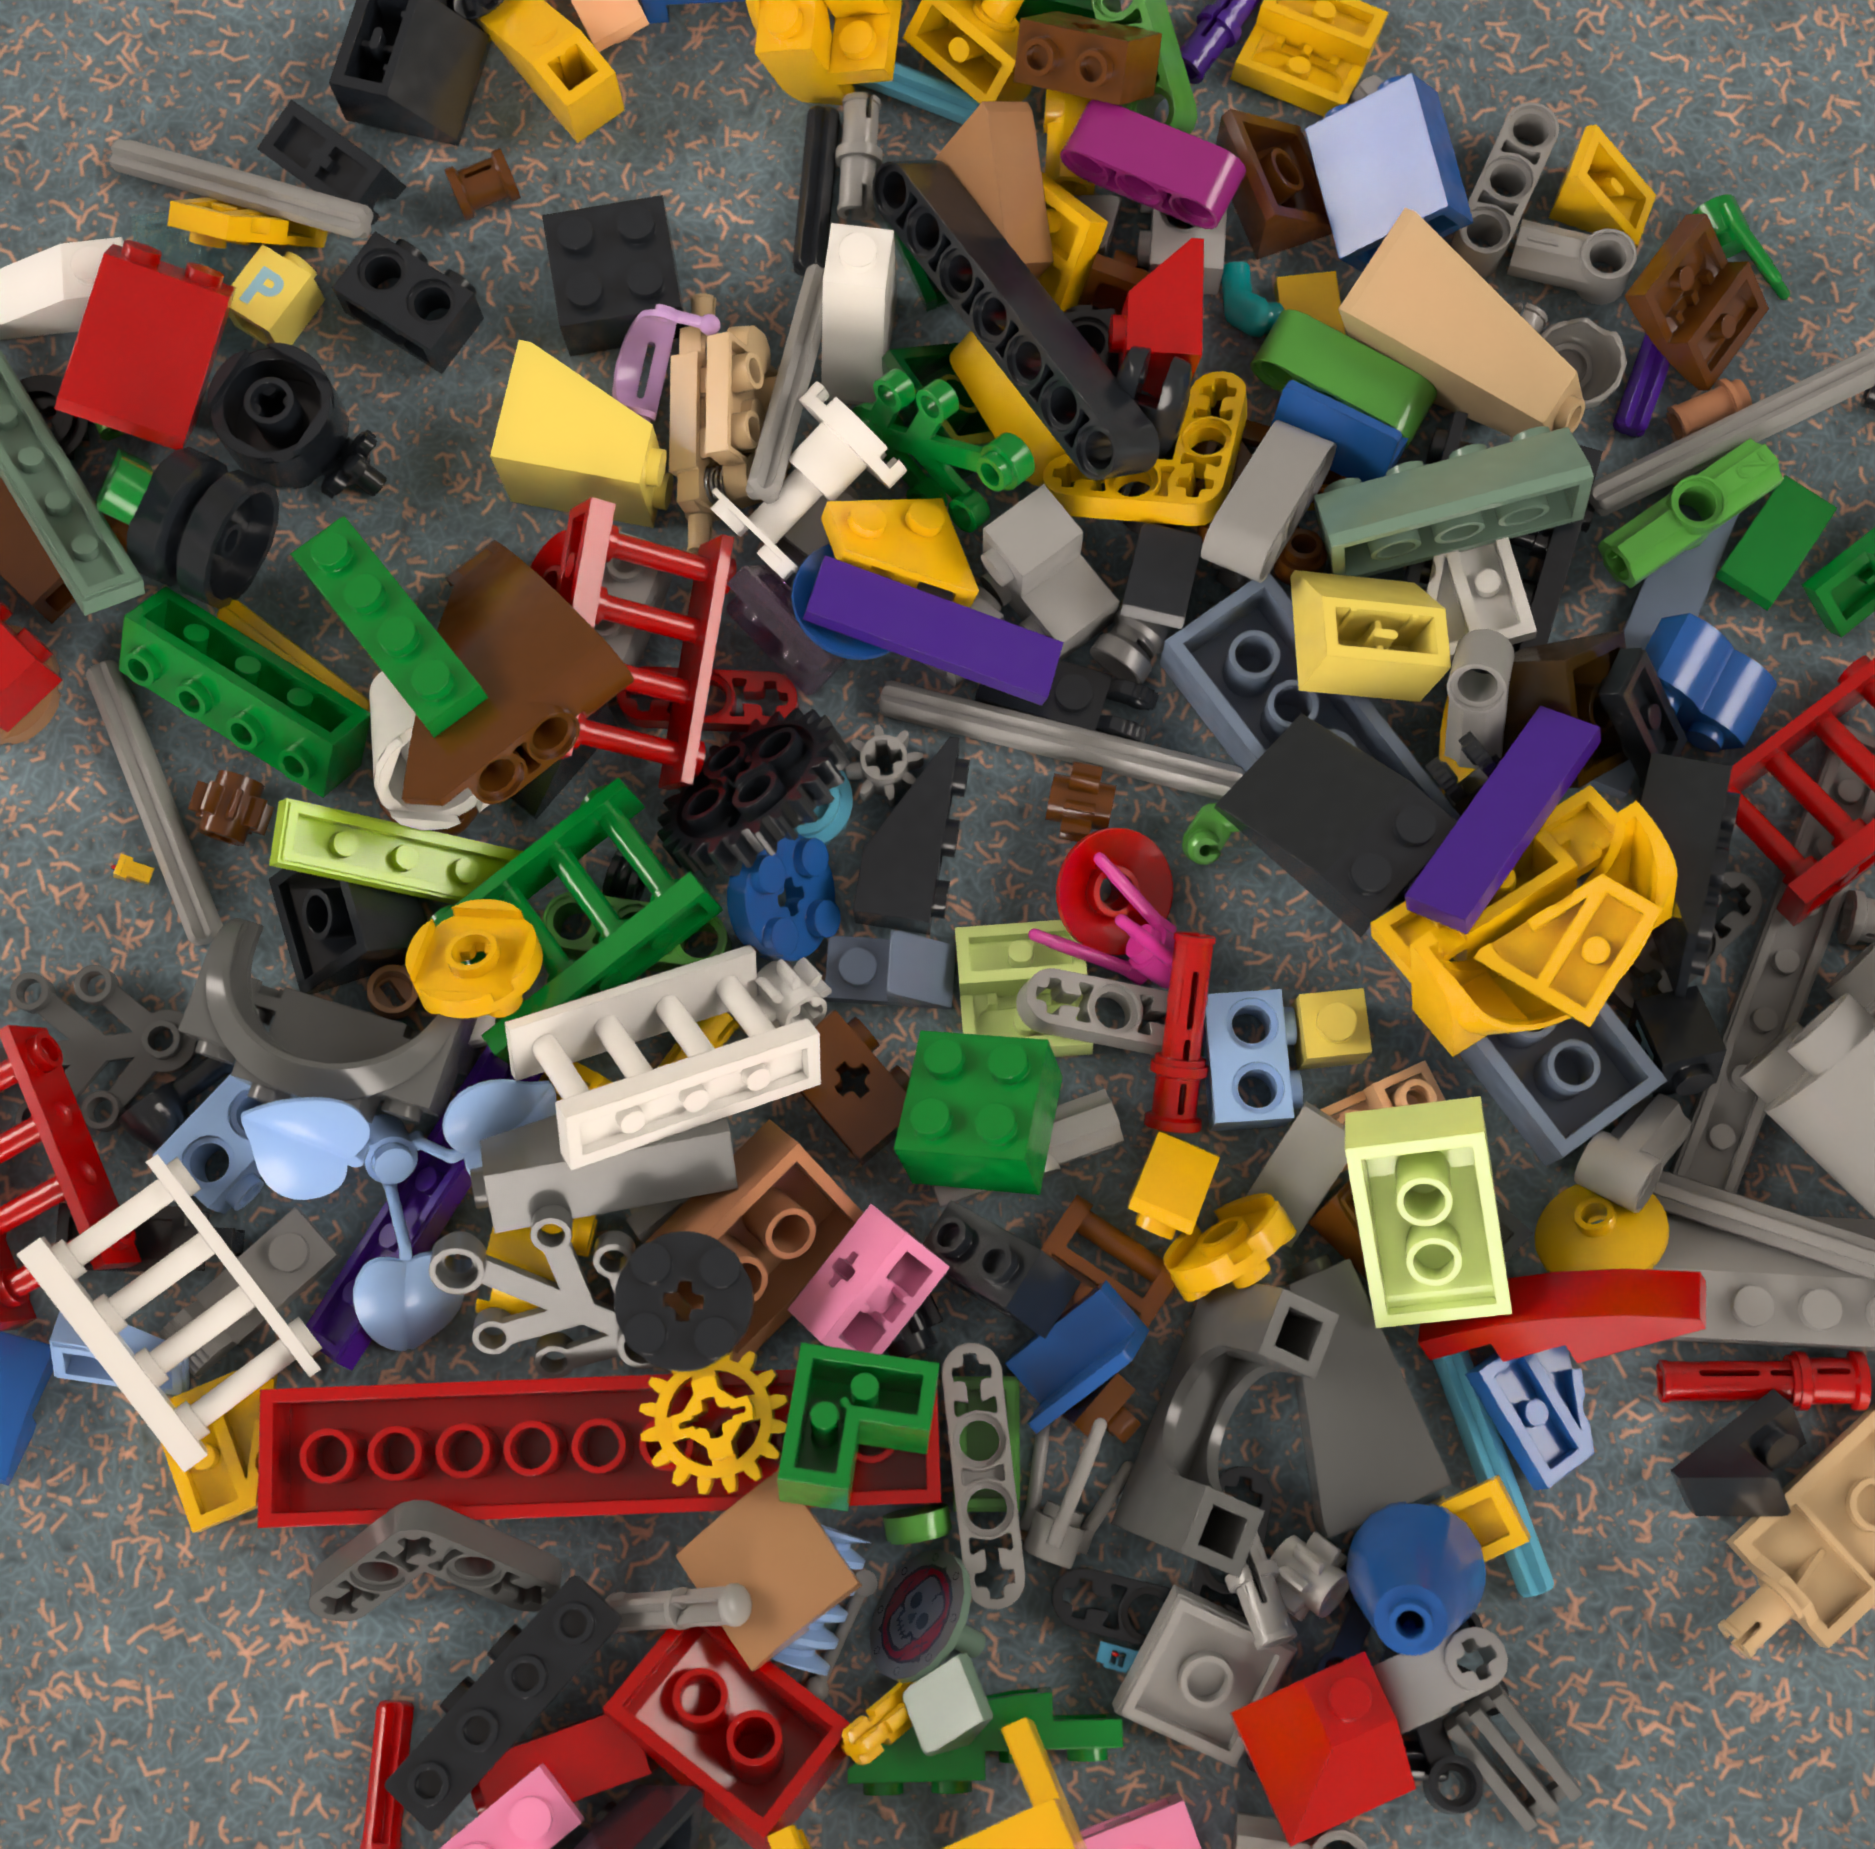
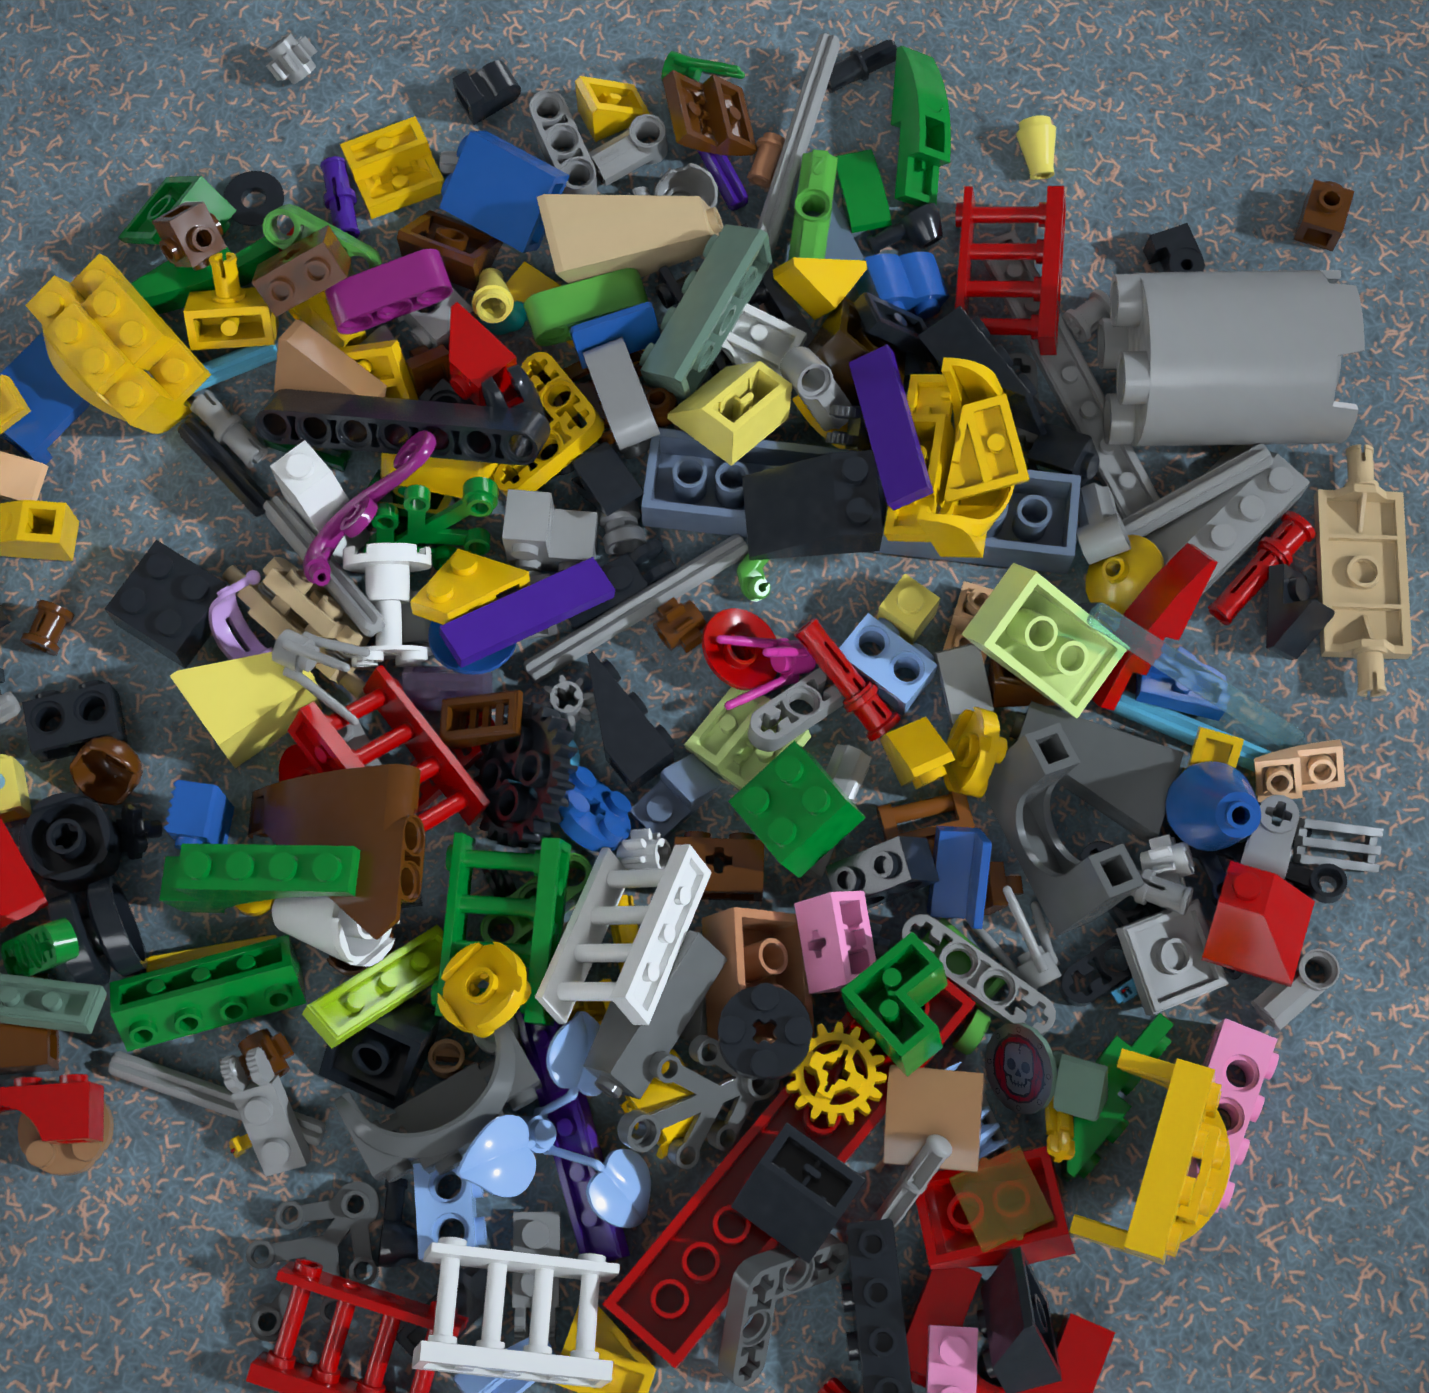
camera: 50 degrees left, 5 degrees down
(170, 861) = (266, 1113): none -> light grey hinge
(379, 369) = (97, 765): none -> reddish brown hair
(408, 515) = (199, 814): none -> blue brick
(548, 1494) = (797, 1193): none -> black slope
(656, 445) = (302, 653): none -> light grey plant
(744, 1725) = (1001, 1199): none -> clear yellow piece
(754, 666) = (455, 712): none -> reddish brown slope
(876, 357) = (362, 508): none -> magenta plant
(1254, 273) = (492, 297): none -> light yellow cone
(1491, 54) = (486, 90): none -> black leg
(1550, 1421) = (1194, 676): none -> clear light blue axle
(1572, 1638) = (1299, 769): none -> light nougat slope
(1610, 592) = (819, 283): none -> yellow slope
(1797, 641) = (920, 226): none -> black bar

